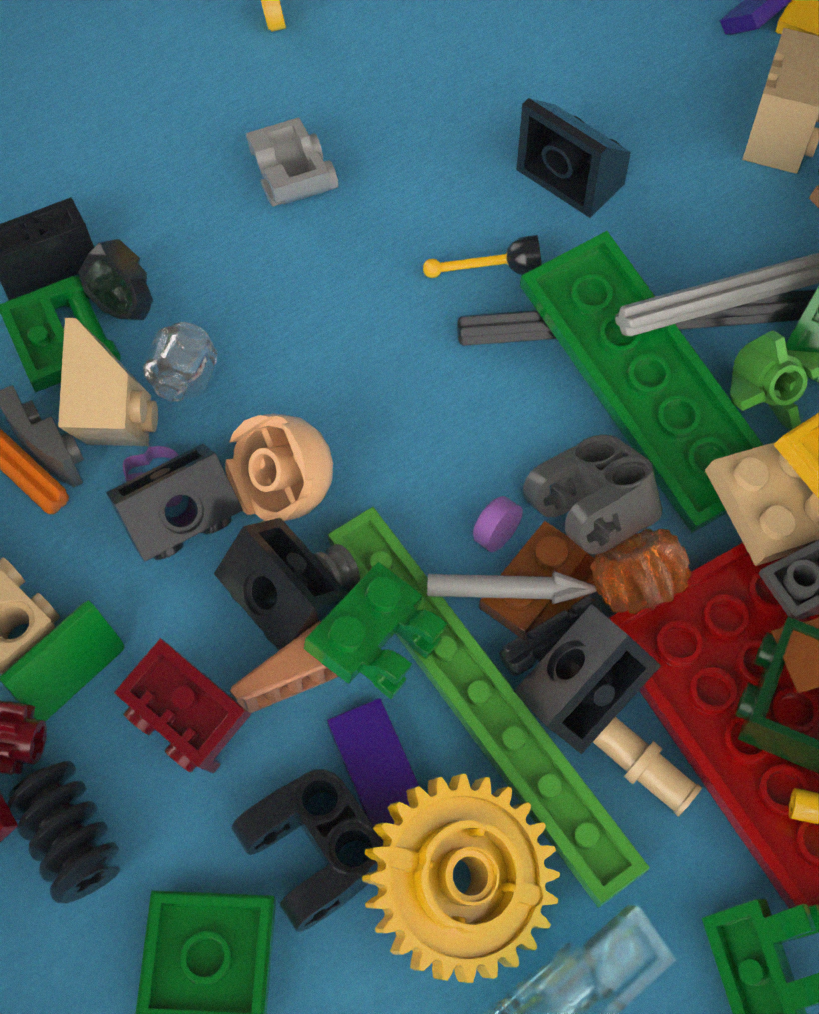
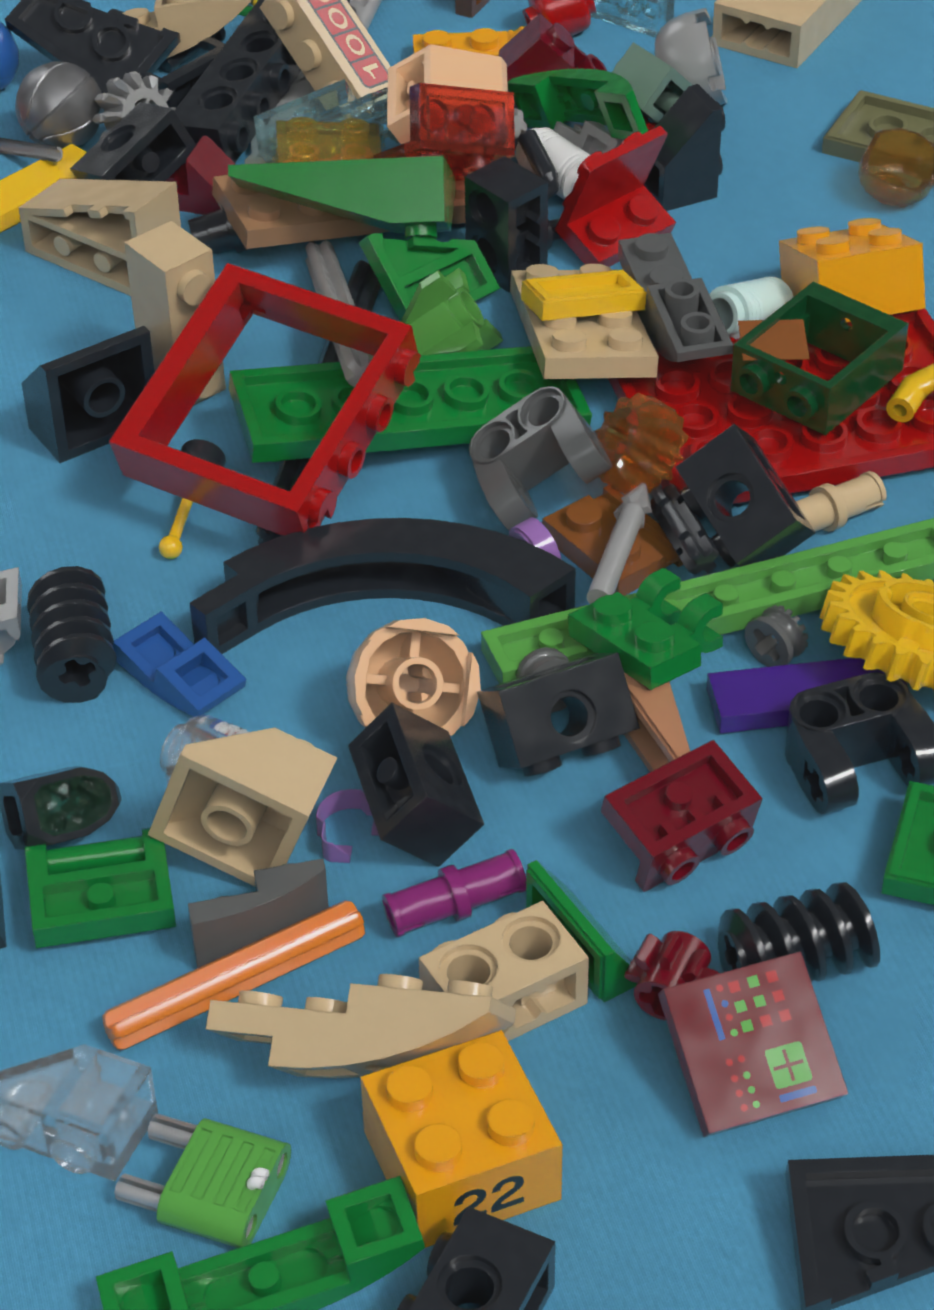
camera: 75 degrees left, 20 degrees down
(88, 562) = (454, 892): none -> magenta pin
(295, 230) = (71, 634): none -> black piece
(297, 314) = (175, 668): none -> blue slope
(425, 371) = (381, 560): none -> black arch
(439, 745) = (786, 631): none -> dark grey bush
(552, 196) = (195, 356): none -> red window
(655, 167) = (167, 283): none -> tan brick

